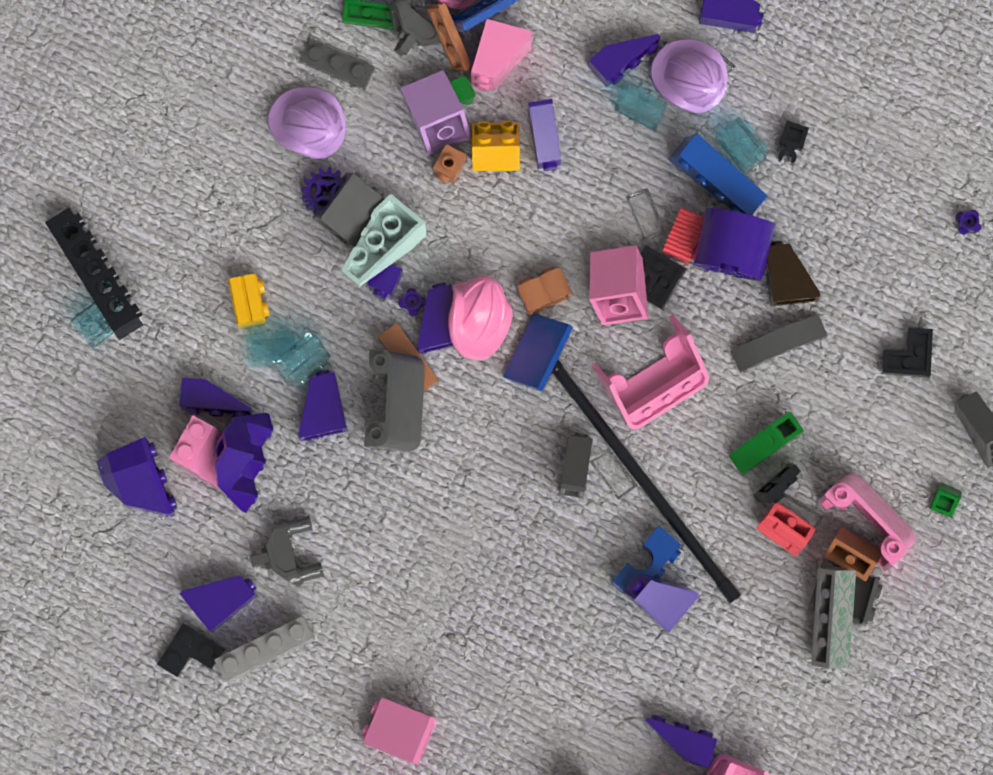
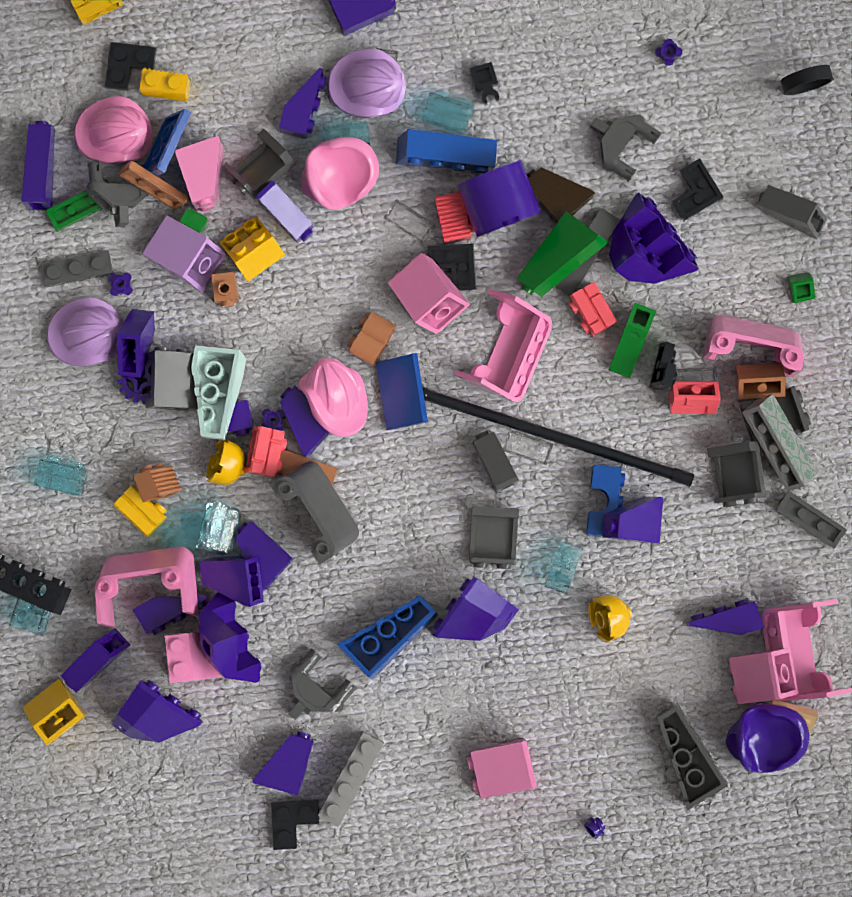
camera: 35 degrees left, 5 degrees up
(56, 419) = (54, 712): none -> yellow slope
(121, 398) = (95, 660): none -> dark purple slope
(201, 227) = (60, 476): none -> clear light blue brick
(241, 367) = (173, 564): none -> bright pink windscreen
(277, 285) = (156, 482): none -> nougat brick
(285, 410) = (234, 577): none -> dark purple slope
(342, 155) = (134, 342): none -> dark purple slope
(347, 311) = (226, 464): none -> yellow cylinder
(366, 108) = (125, 288): none -> dark purple plate
(381, 550) = (383, 640): none -> blue wedge
(386, 323) = (265, 452): none -> coral brick
(468, 581) = (475, 614): none -> dark purple brick
(531, 529) = (493, 536): none -> dark grey panel
(553, 83) = (262, 166): none -> dark grey panel
(572, 596) = (563, 567): none -> clear light blue brick
(583, 665) = (610, 616): none -> yellow cylinder
(614, 132) = (339, 172): none -> bright pink piece
(750, 394) = (592, 310): none -> coral brick
(753, 328) = (559, 255): none -> green slope
(779, 619) = (738, 473): none -> dark grey panel
(815, 704) = (811, 519): none -> dark grey plate
(836, 373) = (648, 246): none -> dark purple brick
(872, 263) = (615, 137): none -> dark grey connector

